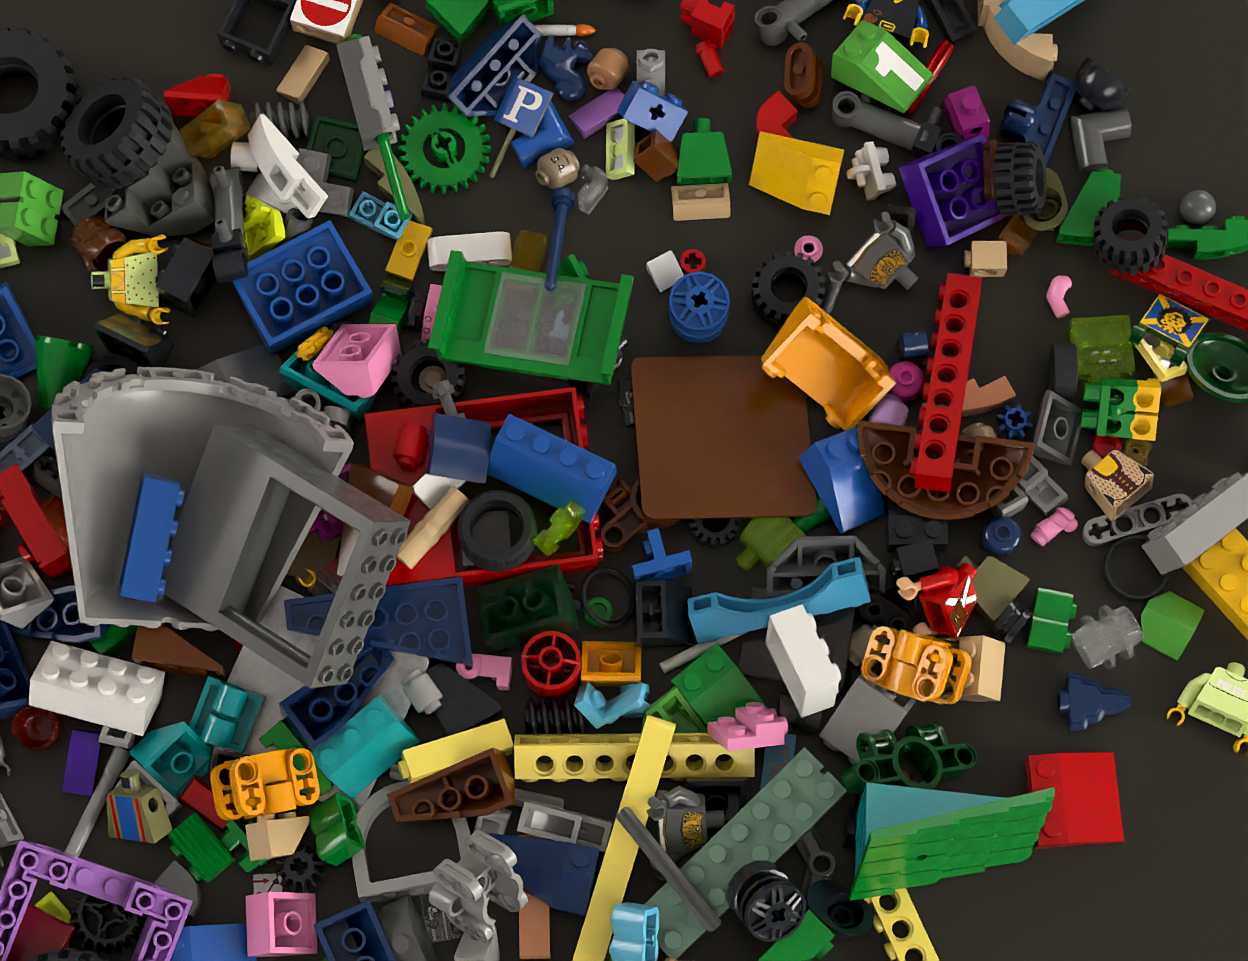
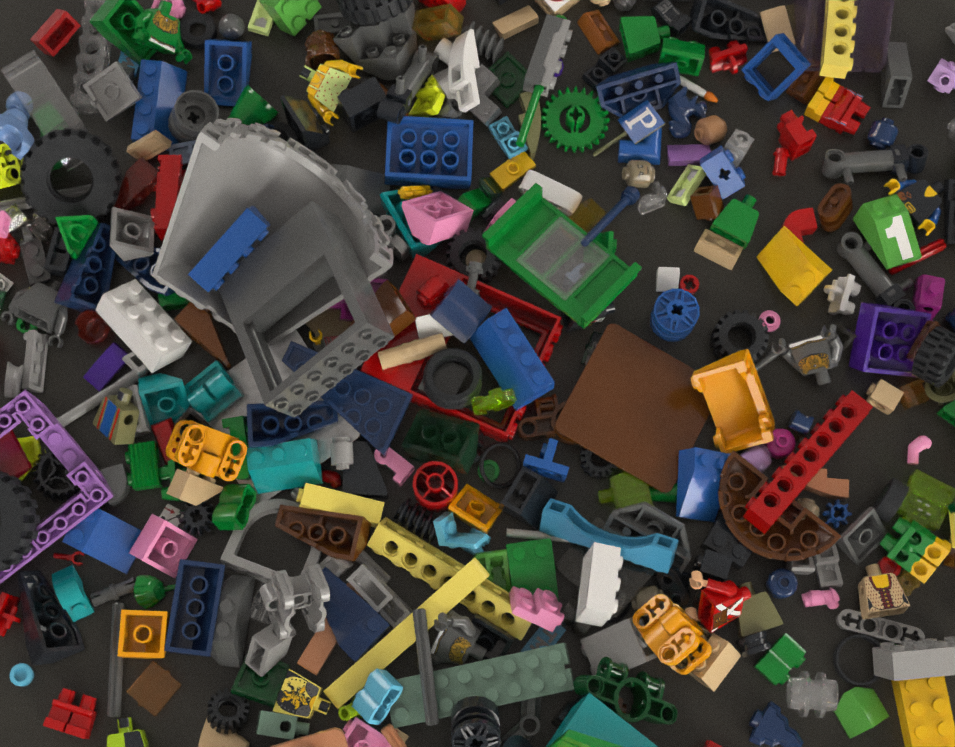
camera: 30 degrees right, 0 degrees up
(425, 728) = (332, 478): none -> red arm

